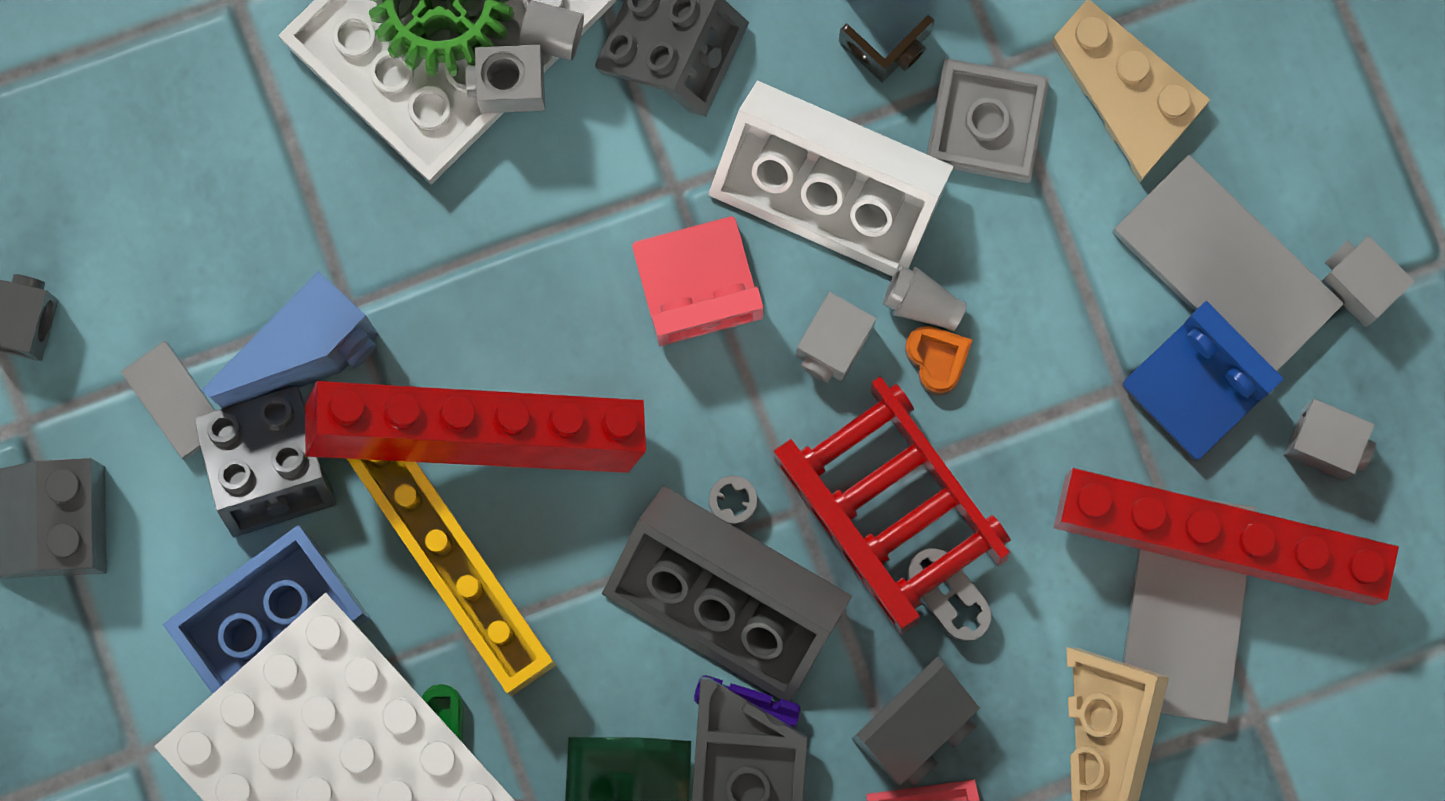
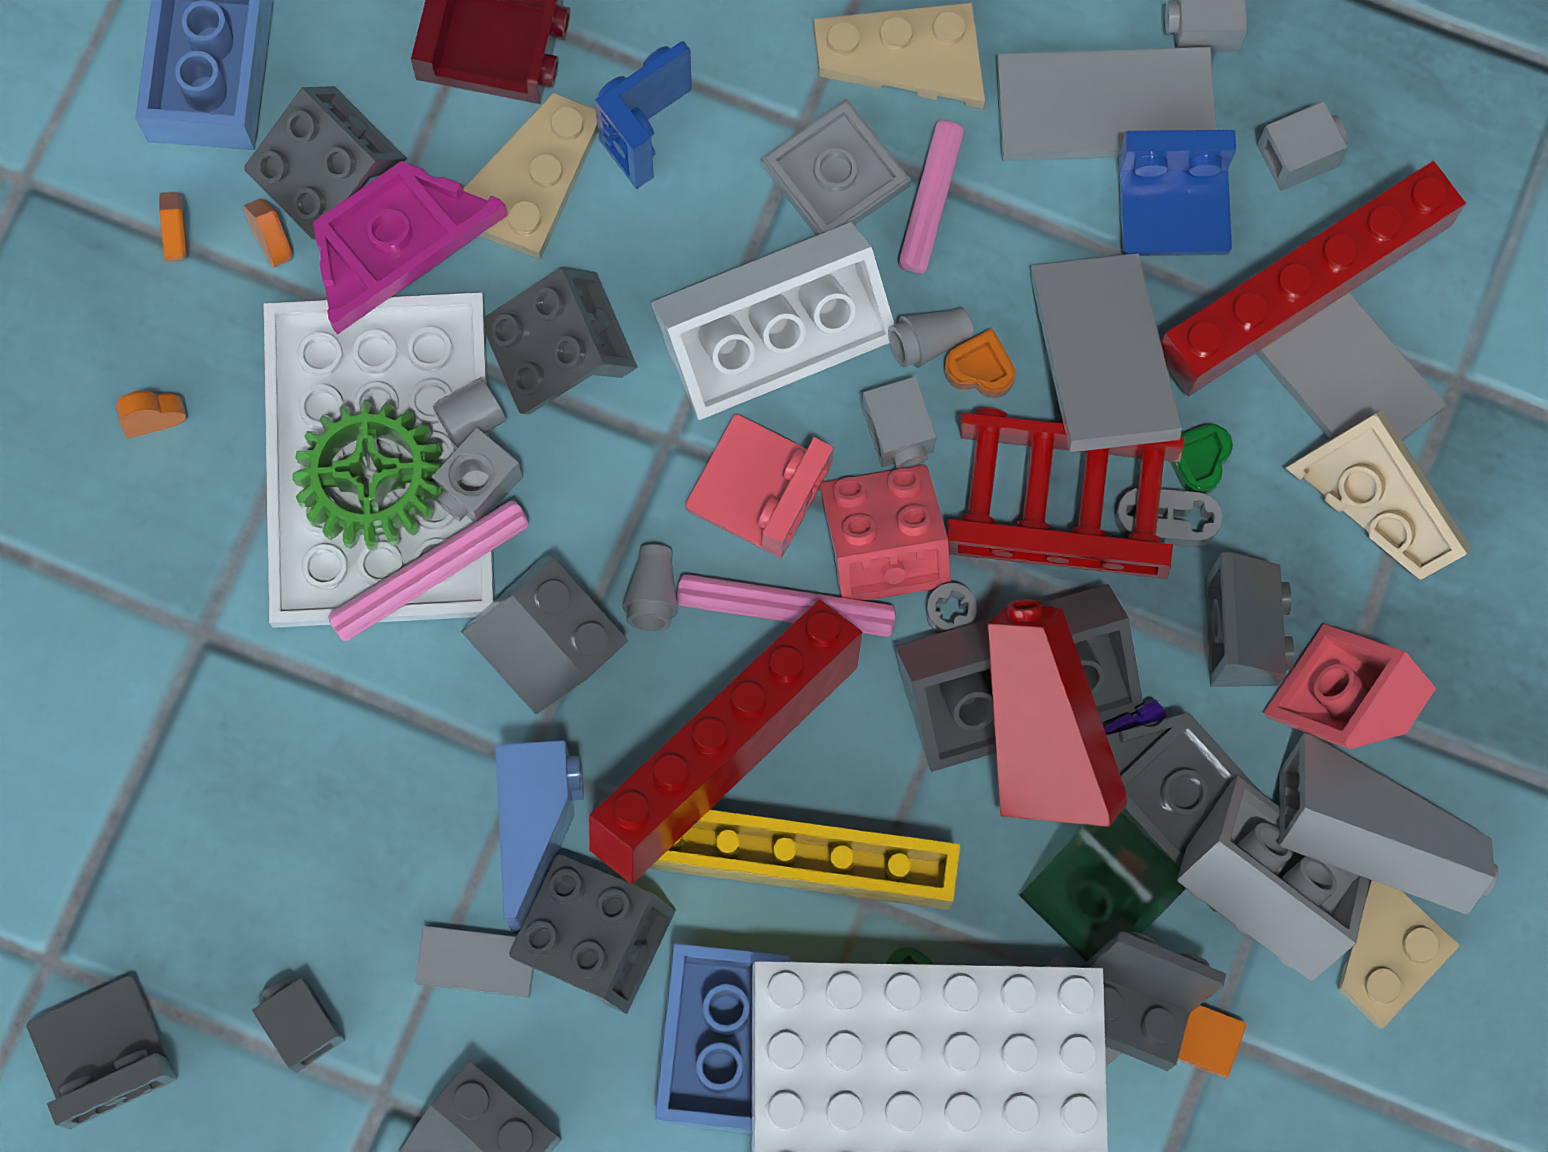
camera: 50 degrees left, 5 degrees down
(413, 109) = (428, 570): none -> bright pink axle
(443, 231) = (544, 635): none -> dark grey slope
(548, 277) = (652, 594): none -> light grey cone
(626, 379) = (779, 603): none -> bright pink axle
(695, 644) = (1047, 725): none -> slope
(744, 402) = (886, 533): none -> coral bracket
(902, 56) = (720, 206): dark brown bracket -> none
(1018, 578) = (1203, 458): none -> green tile
(1024, 437) = (1105, 353): none -> light grey tile
(1032, 206) = (931, 197): none -> bright pink axle

